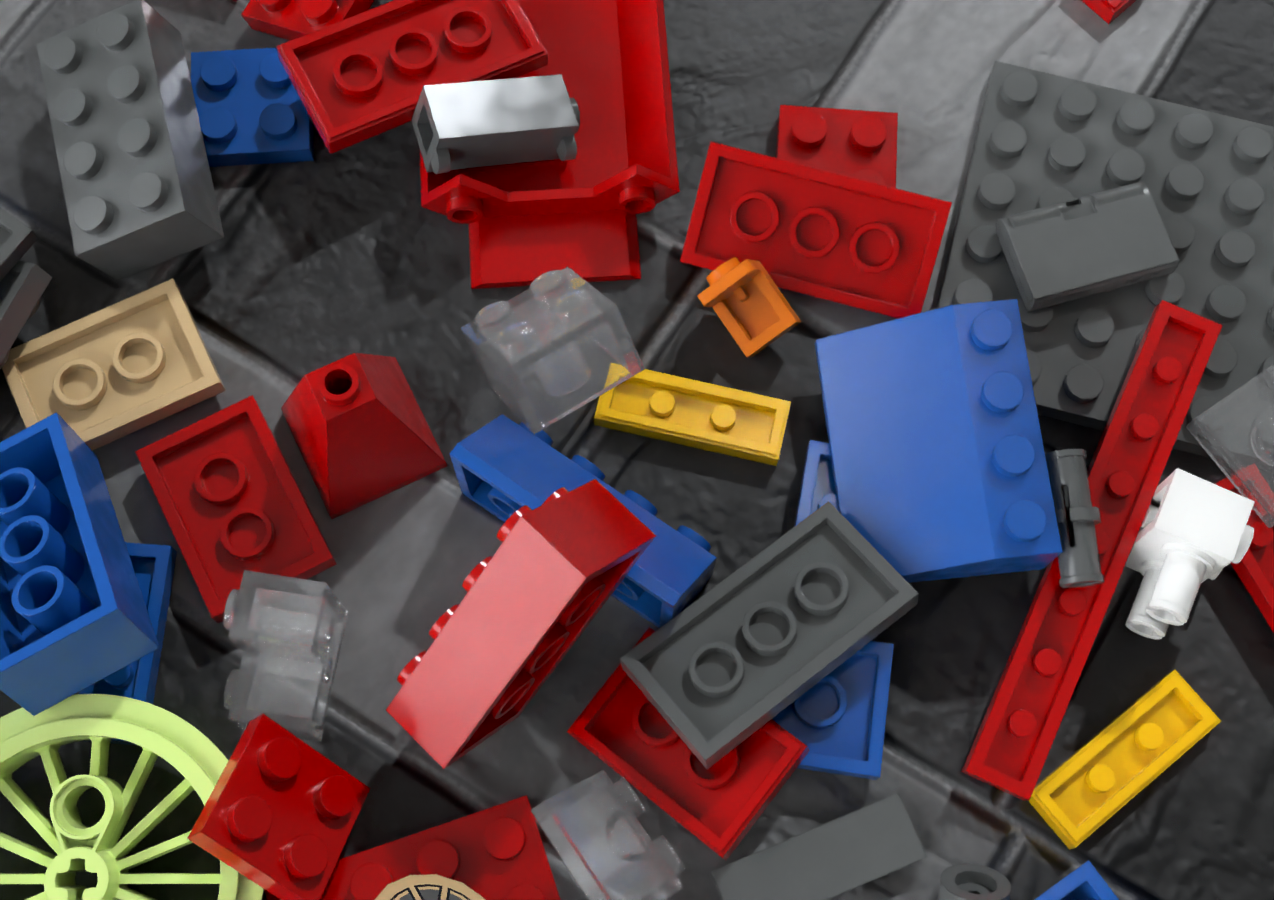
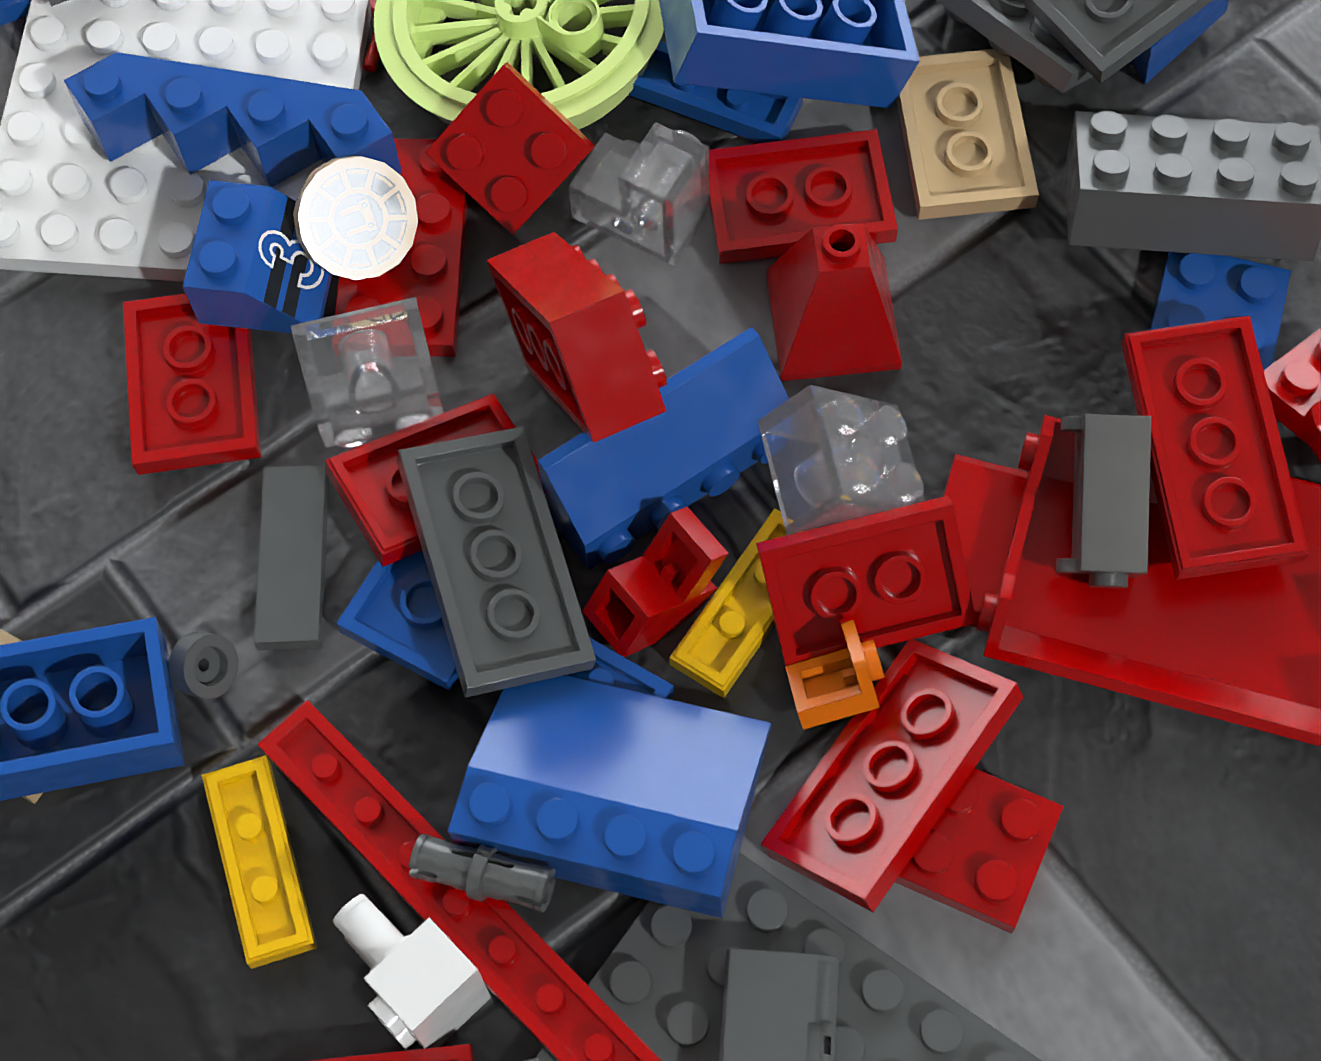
camera: 115 degrees right, 5 degrees down
(656, 297) = (887, 571): none -> red plate
(721, 487) = (659, 590): none -> red brick

